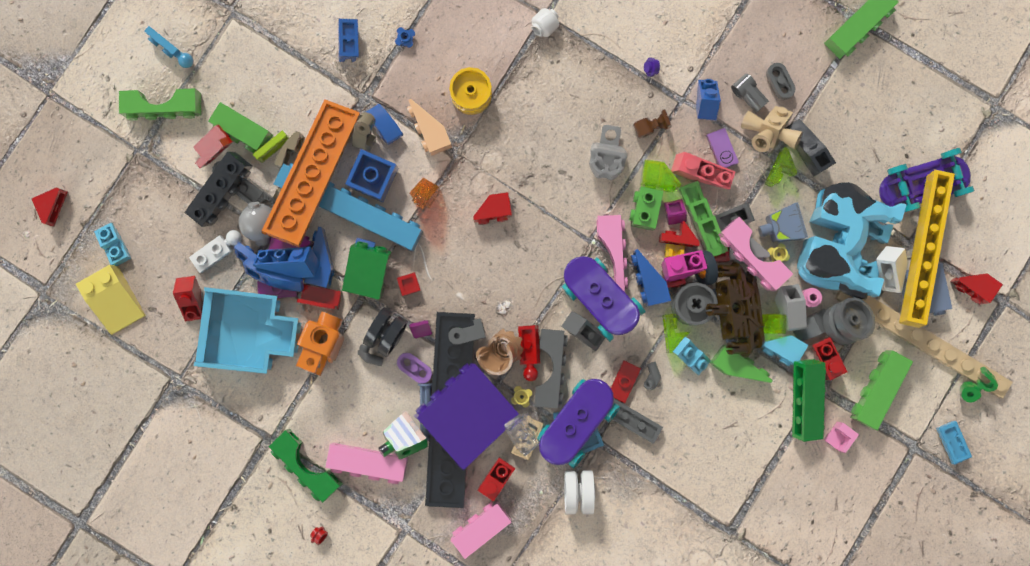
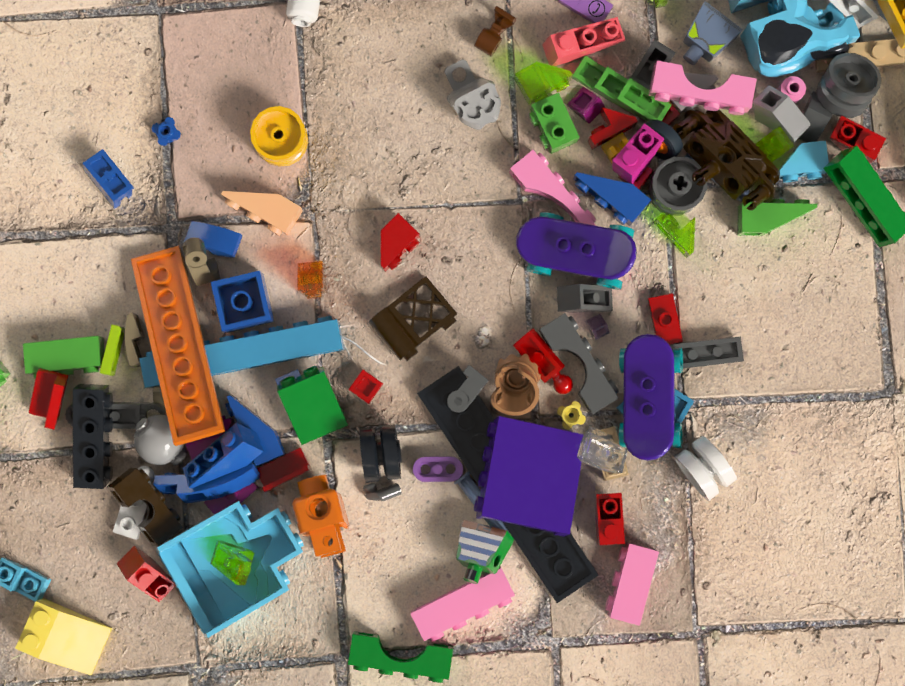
camera: 35 degrees left, 0 degrees up
(220, 273) = (160, 521): none -> dark brown arch
(246, 330) = (232, 561): none -> clear neon green slope
(420, 329) = (414, 423): magenta slope -> none
(453, 264) = (398, 333): none -> dark brown piece
(579, 354) = (597, 326): none -> piece
(654, 376) = (692, 292): dark grey arm -> none
(692, 356) = (715, 241): medium azure slope -> none
(781, 248) = (724, 62): light yellow plate -> none

